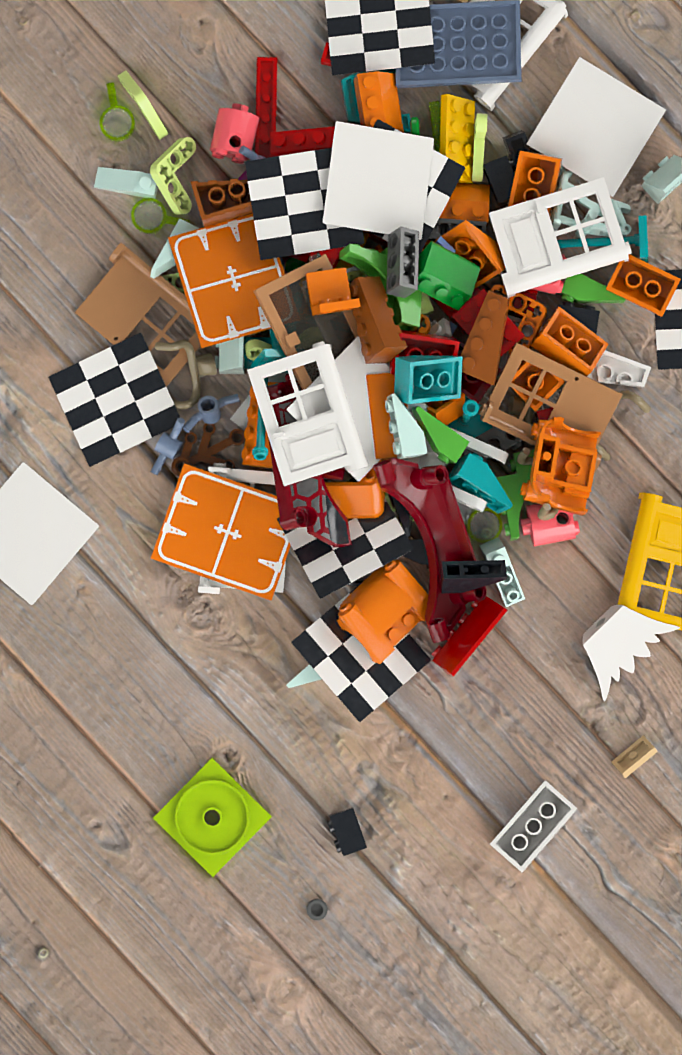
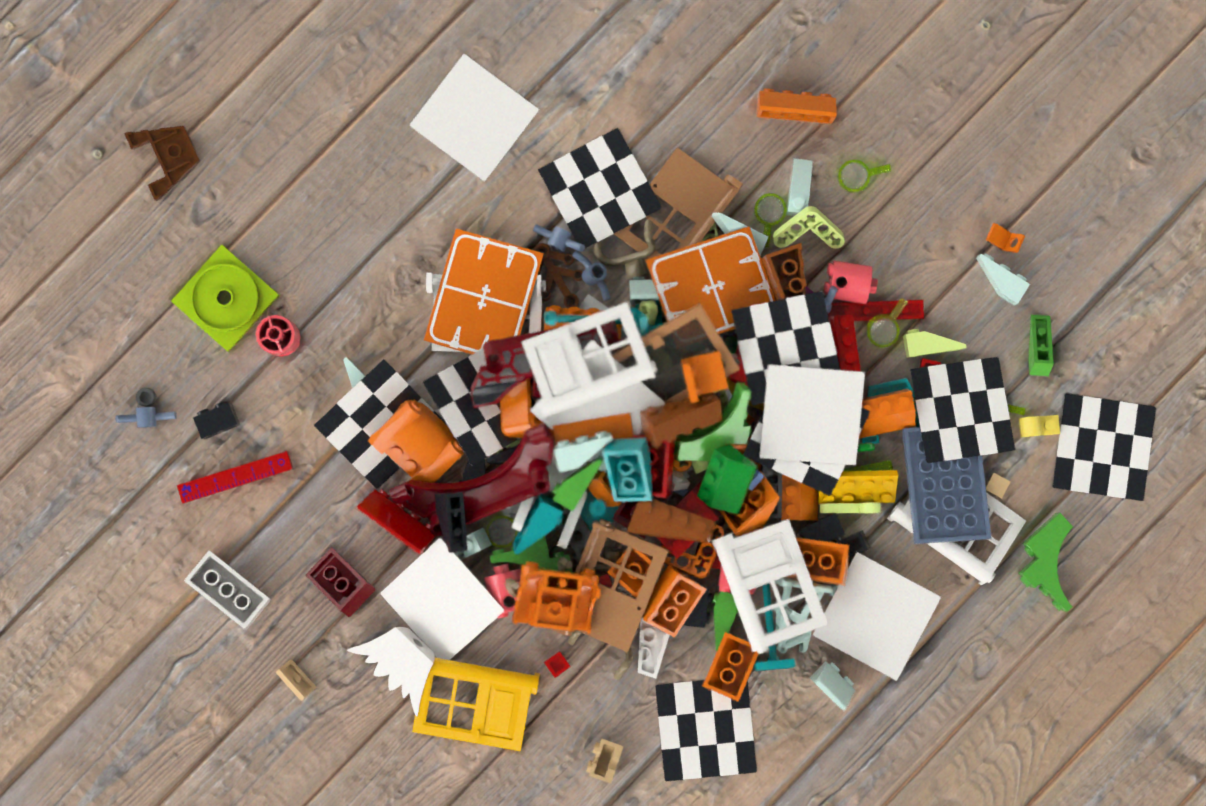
camera: 95 degrees right, 0 degrees up
(38, 179) = (796, 106): none -> orange slope
(48, 866) = (173, 152): none -> reddish brown wing
(143, 103) = (872, 196): yellowish green beam -> none
(258, 757) = (278, 335): none -> coral cylinder
(286, 101) = (883, 328): none -> piece
(304, 59) = (926, 343): none -> yellowish green slope
(339, 909) = (146, 417): none -> sand blue piece
(402, 262) = (735, 440): dark grey brick -> none
(410, 814) = (235, 477): none -> red tile
(530, 704) = (340, 582): none -> dark red slope
(557, 592) = (442, 601): none -> white sticker
(630, 473) = (557, 664): none -> red plate

